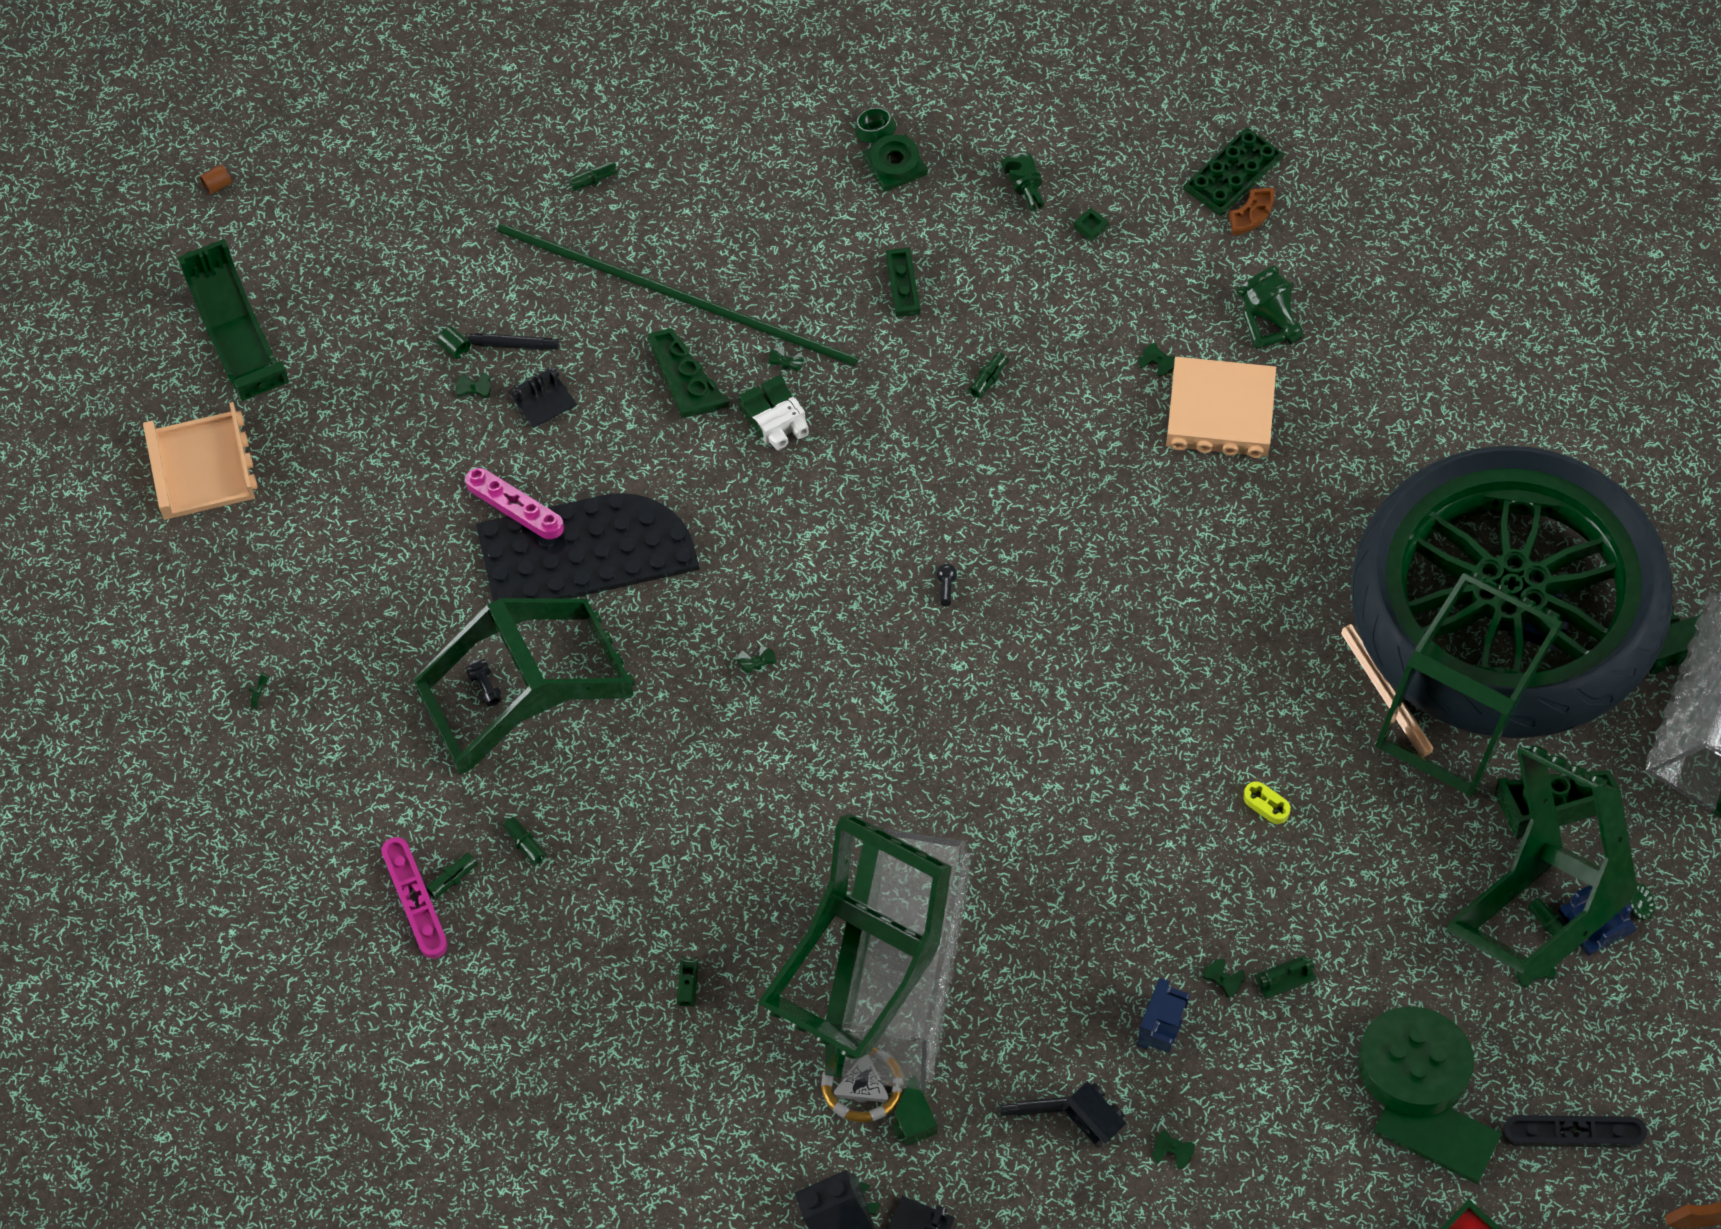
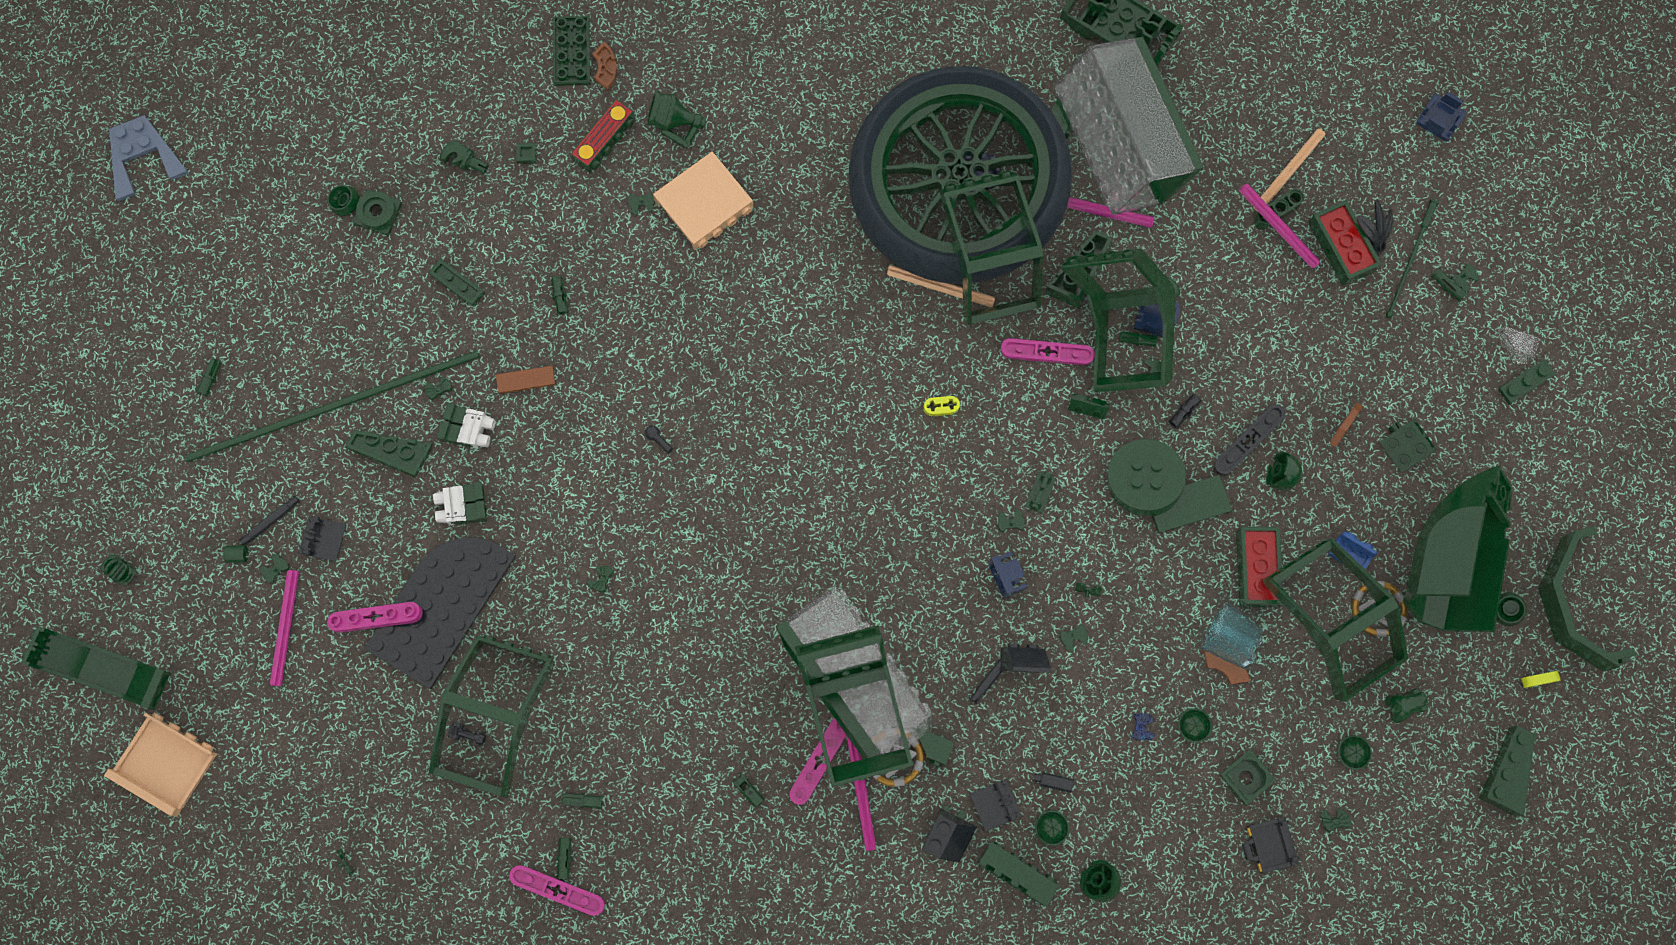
camera: 50 degrees left, 15 degrees up
(341, 265) = (118, 569): none -> dark green gear
(426, 443) = (284, 628): none -> dark pink axle
(698, 477) = (461, 504): none -> hips
(760, 1026) = (809, 777): none -> dark pink piece
(785, 1102) = (863, 804): none -> dark pink axle
(876, 422) = (525, 379): none -> dark orange tile
(1182, 268) = (603, 136): none -> brick
(1242, 1122) = (1080, 587): none -> dark green piece
(1417, 829) = (1029, 349): none -> dark pink piece
(1420, 932) = (1096, 408): none -> dark green hinge
(1530, 1039) = (1185, 411): none -> black pin
(1580, 1197) = (1285, 472): none -> dark green cylinder
(1639, 762) = (1104, 211): none -> dark pink axle

